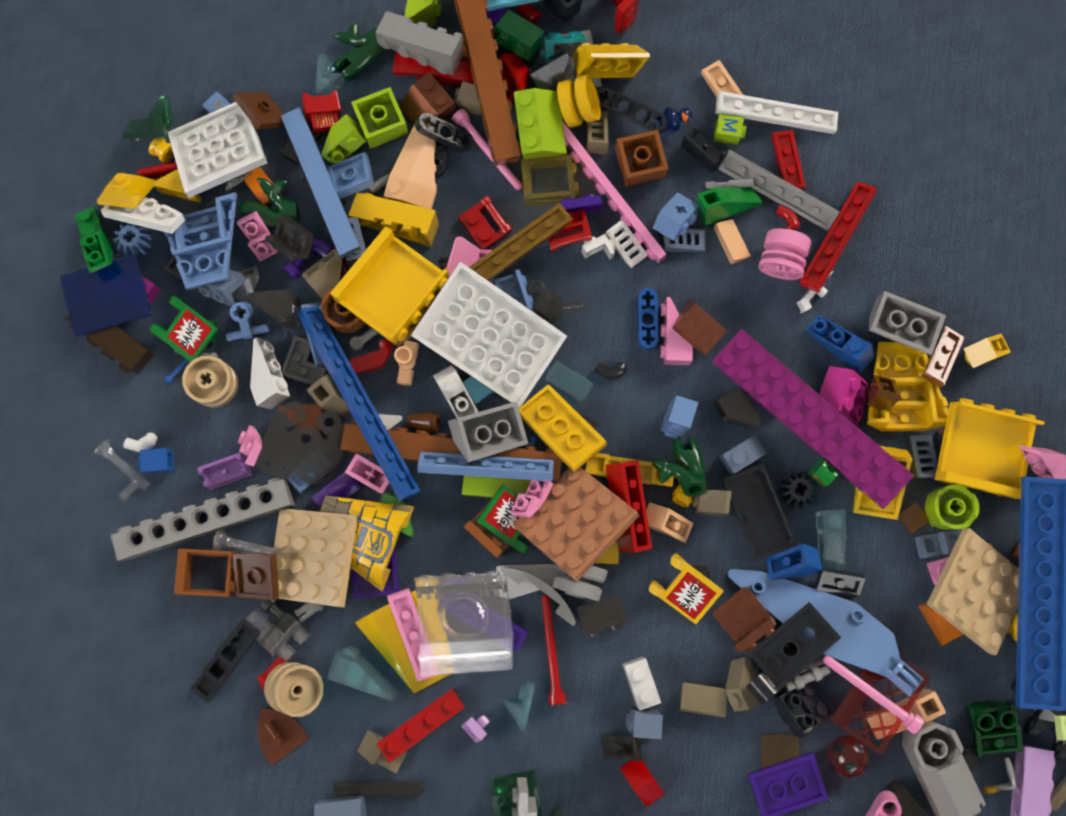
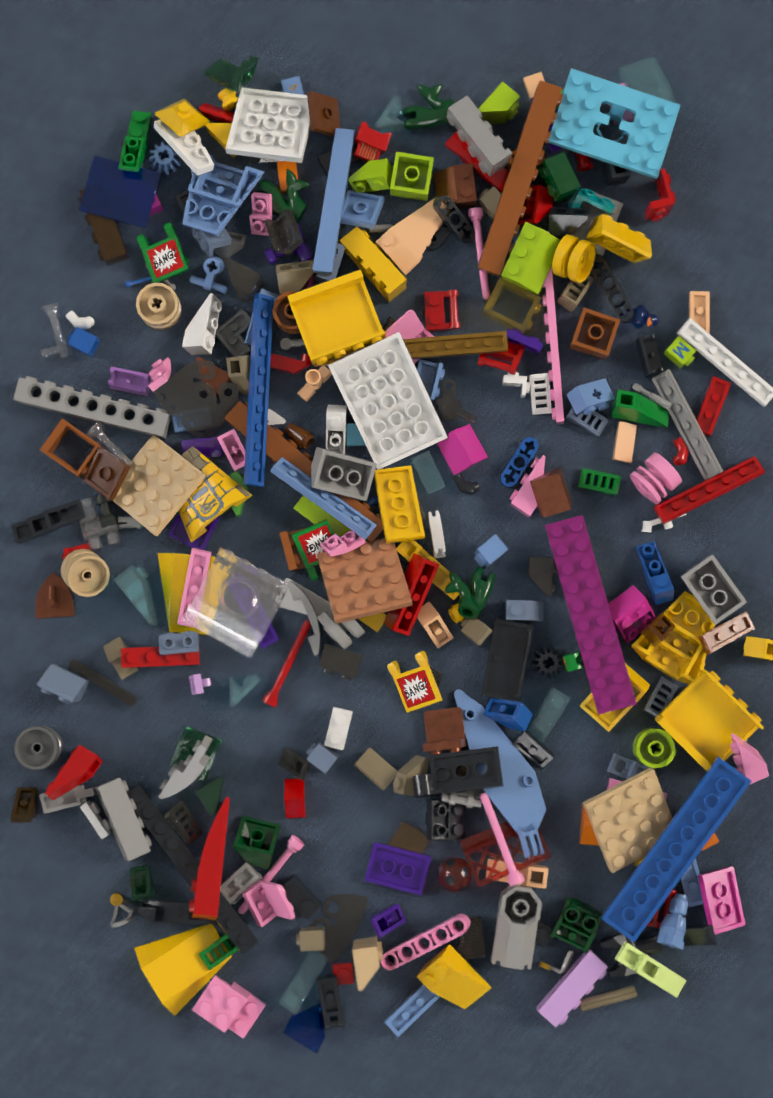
camera: 35 degrees right, 5 degrees up
(432, 700) = (179, 643): none -> sand blue bracket
(586, 340) = (462, 449): none -> dark pink slope
(615, 434) = (437, 535): none -> white piece
(750, 282) = (598, 488): none -> green slope
(913, 518) = (622, 738): clear orange tile -> none

